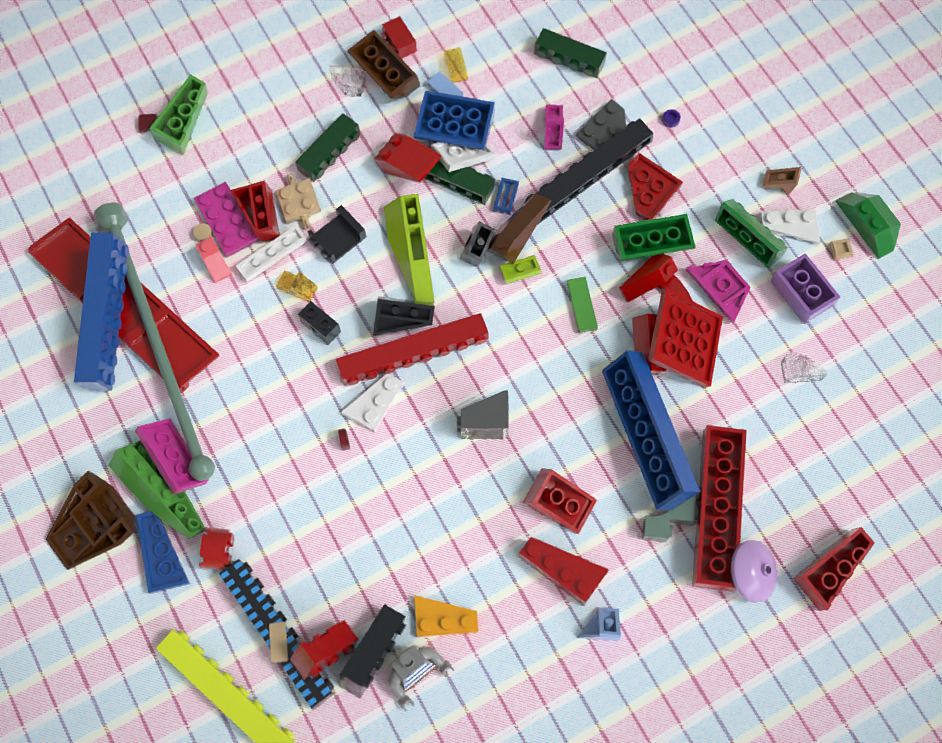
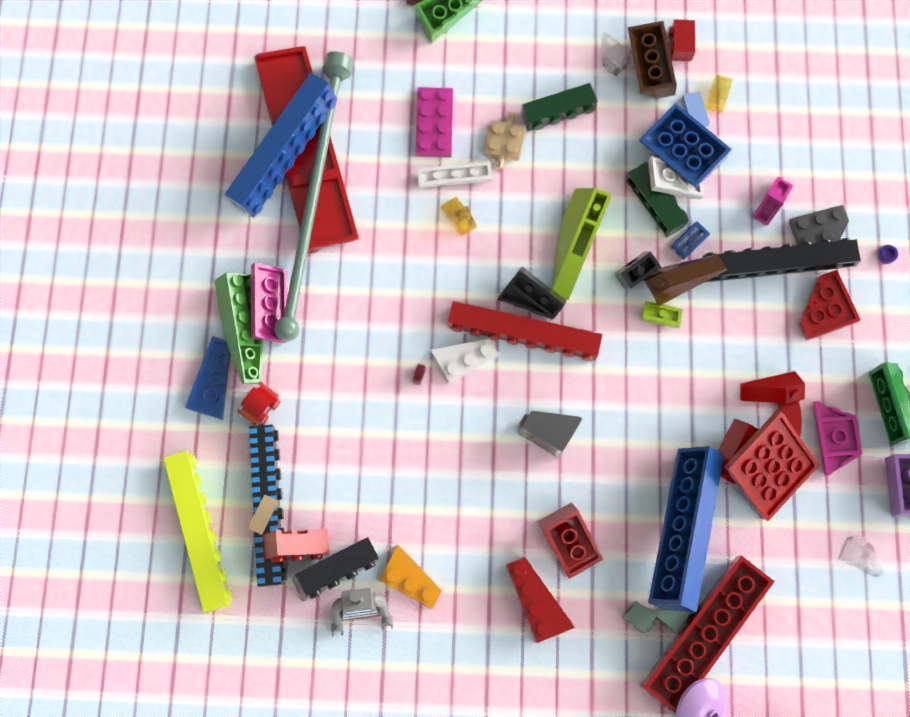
camera: 30 degrees right, 5 degrees up
(90, 522) = (173, 320): reddish brown wedge -> none
(202, 232) = (407, 122): tan tile -> none
(213, 259) = (402, 152): coral slope -> none
(259, 209) = (466, 129): red wedge -> none
(319, 322) = (458, 260): black brick -> none
(338, 236) = (520, 192): black panel -> none
(406, 158) = (621, 156): red slope -> none
(570, 53) = (831, 140): dark green brick -> none
(582, 304) = (698, 378): bright green tile -> none
(603, 626) = (541, 670): light blue slope -> none
(653, 237) = (800, 356): green slope -> none

